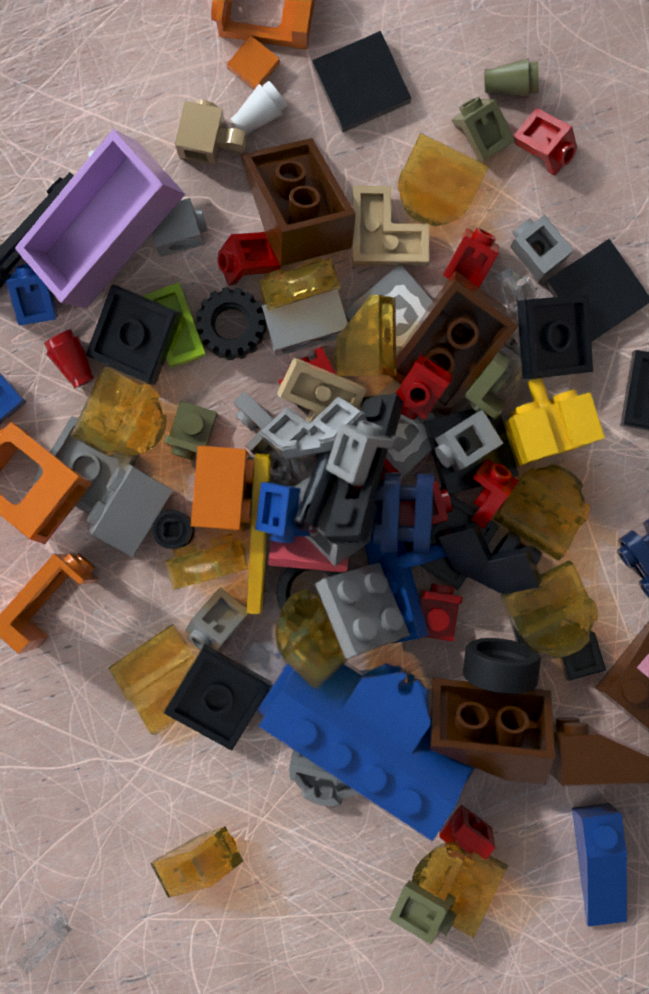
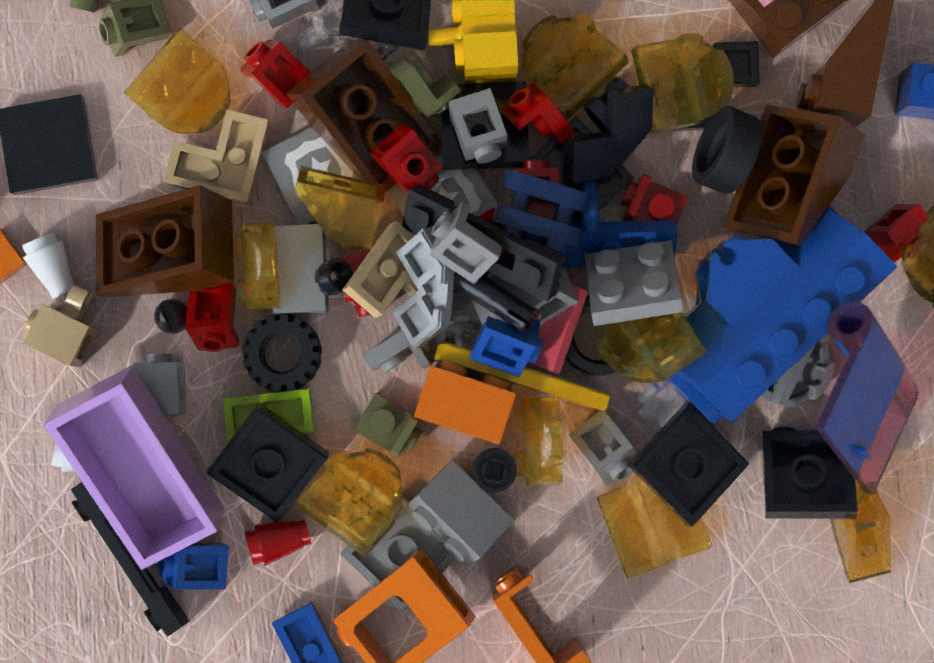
camera: 75 degrees left, 0 degrees up
(233, 805) = (805, 477): none -> black plate
(246, 226) = (179, 312): none -> black hinge
(311, 843) = (869, 397): none -> door
(312, 354) = (323, 276): none -> black hinge

